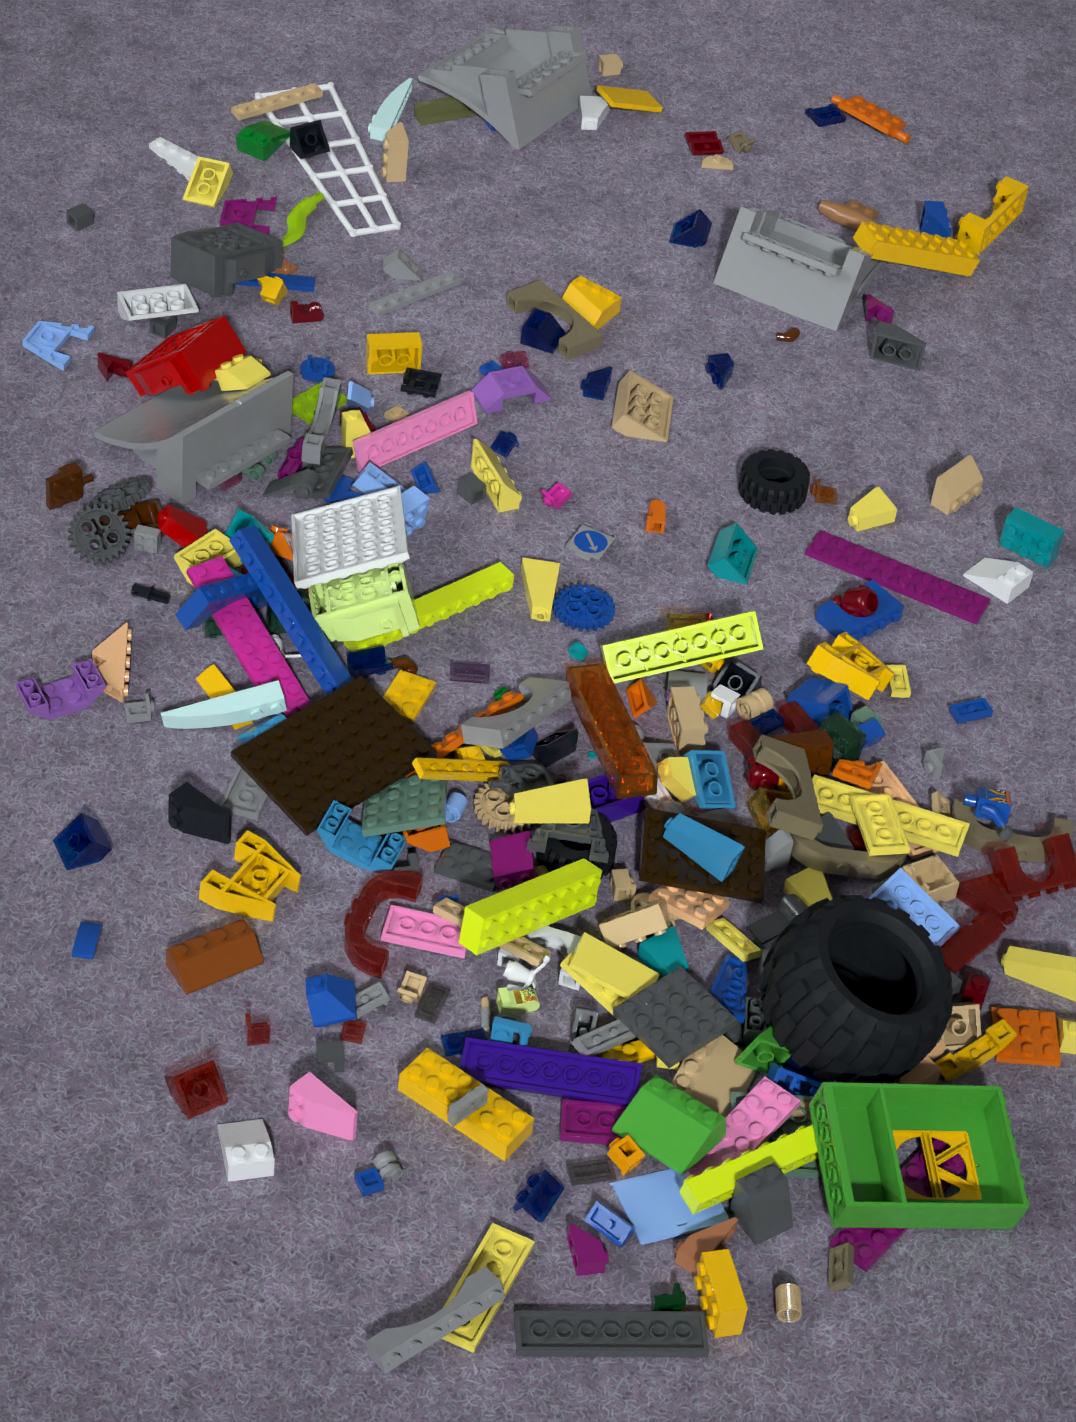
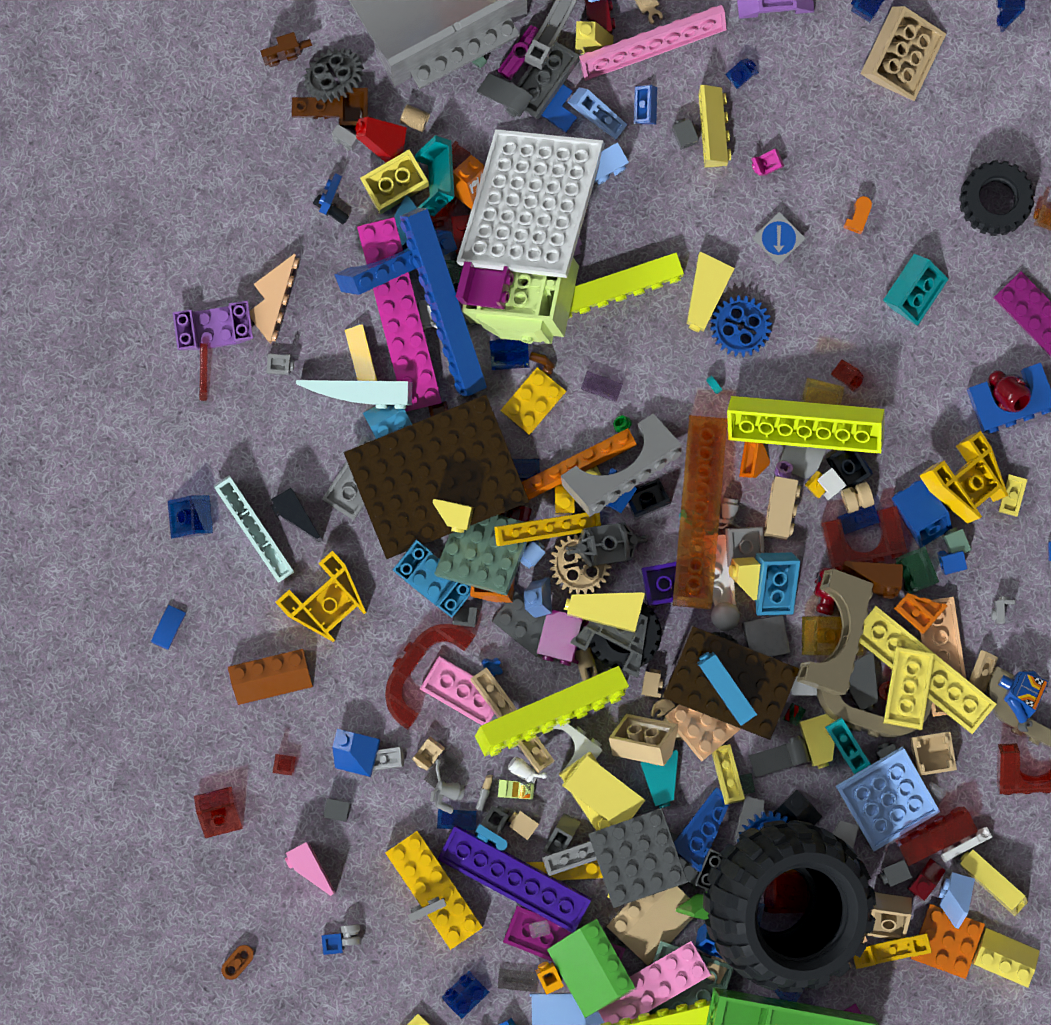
camera: 25 degrees right, 40 degrees up
(60, 729) = (203, 371): none -> clear red bar
(82, 539) = (280, 130): dark grey gear -> none
(145, 575) = (331, 187): none -> blue plate
(151, 836) = (253, 528): none -> light aqua slope
(213, 516) = (414, 118): none -> tan piece
(246, 1150) = (242, 882): white slope -> none
(265, 1225) = (237, 961): none -> dark orange plate
(330, 595) = (484, 286): none -> magenta panel
(353, 1032) = (366, 784): clear red tile -> none
(365, 761) = (454, 514): none -> light yellow slope
(445, 1015) = (450, 790): none -> light grey piece
(477, 833) = (538, 598): none -> medium blue slope
(542, 1027) = (522, 824): none -> tan brick
(596, 1107) = (539, 929): none -> clear slope
(776, 880) = (794, 714): none -> clear green tile
(839, 878) = (847, 745): none -> teal slope
(986, 895) = (981, 785): clear red slope -> none
(992, 957) = (966, 844): none -> white hinge
(1016, 984) = (956, 897): none -> light blue slope

